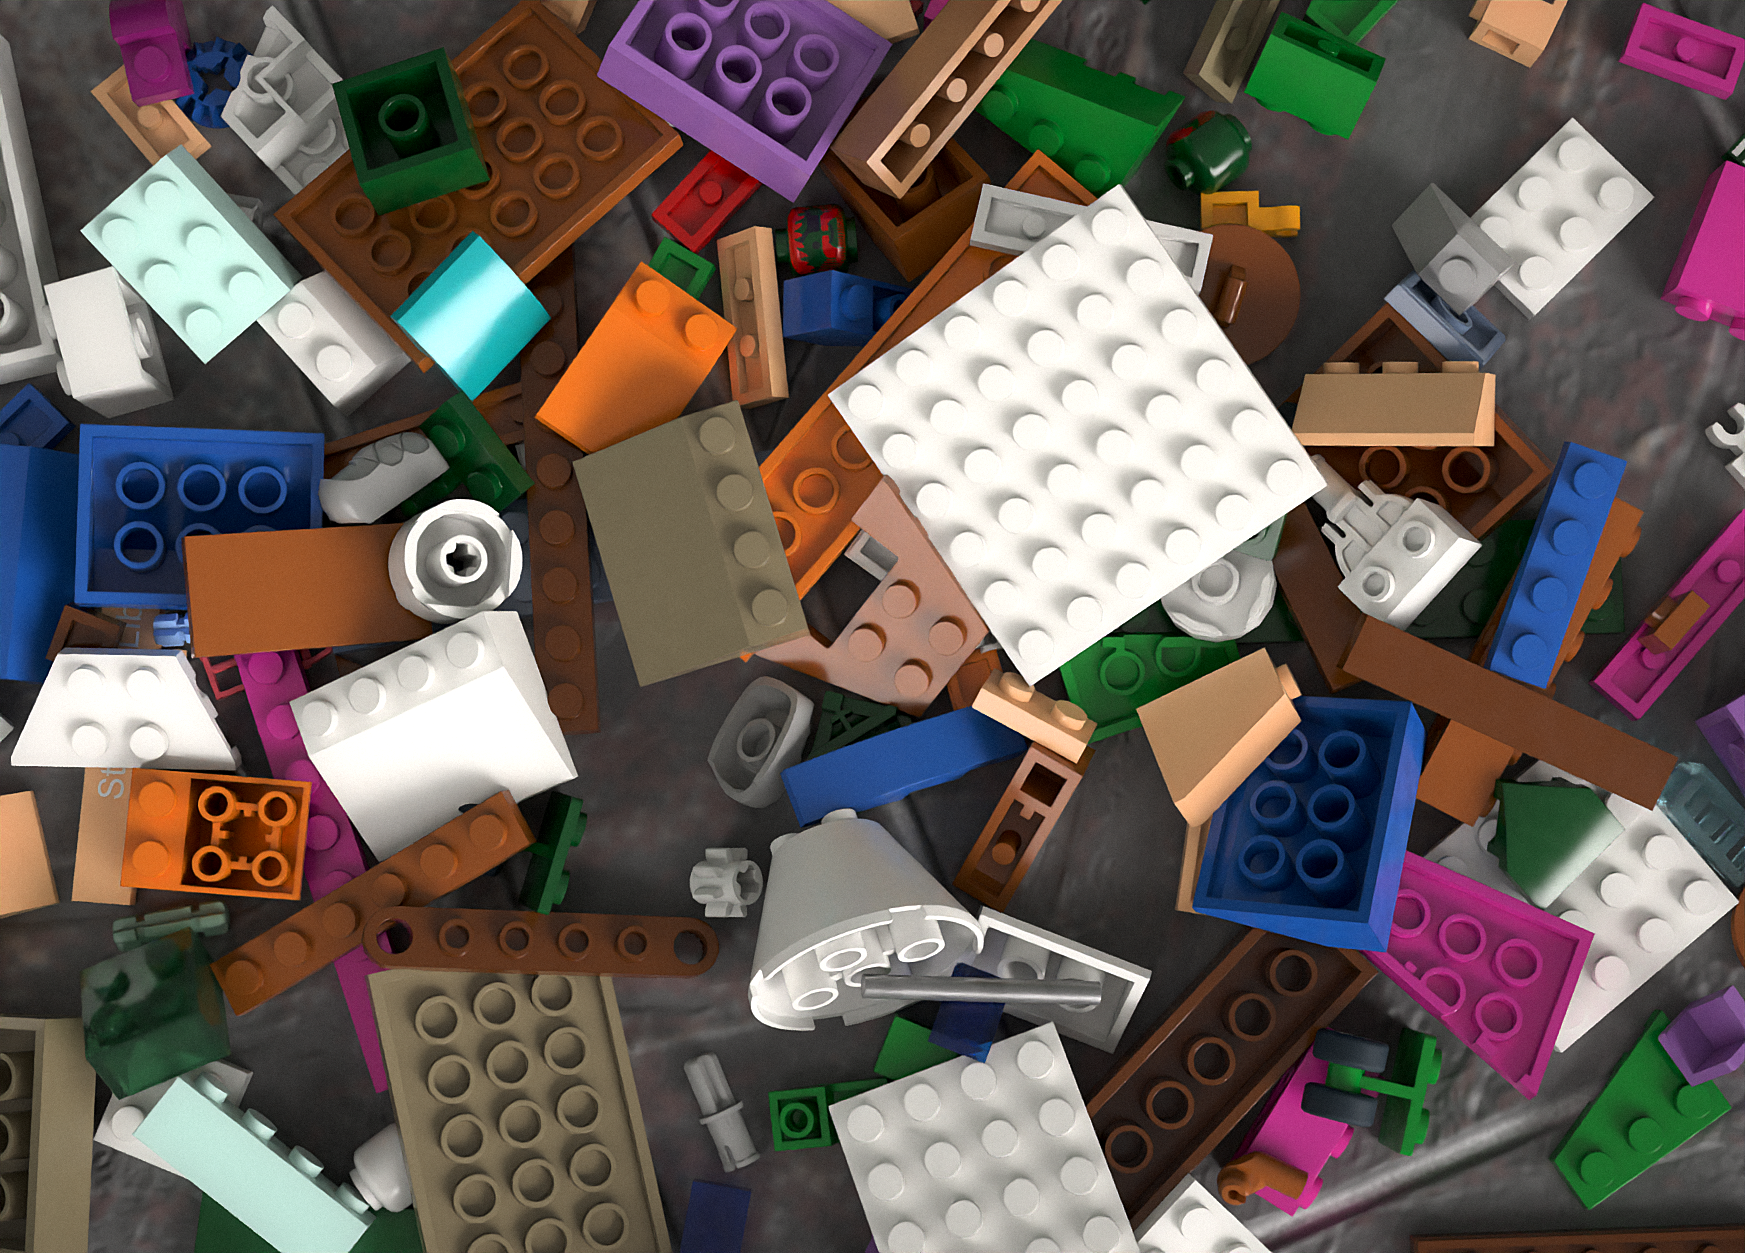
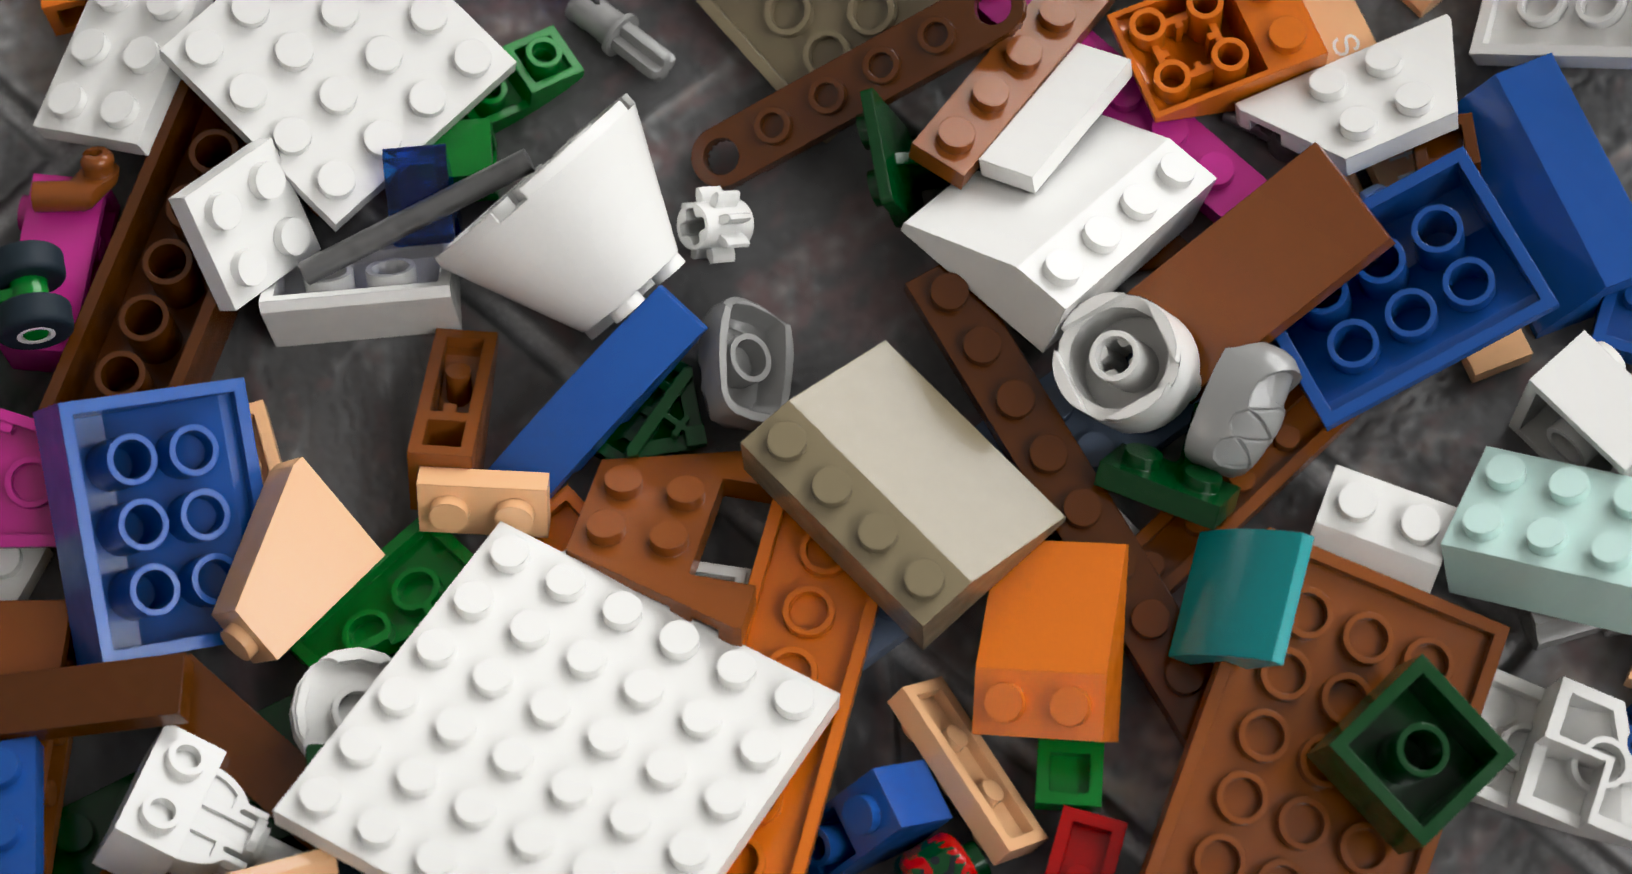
camera: 155 degrees right, 15 degrees down
(393, 818) = (1055, 117): none -> white tile
(1132, 1056) = (244, 224): none -> white plate

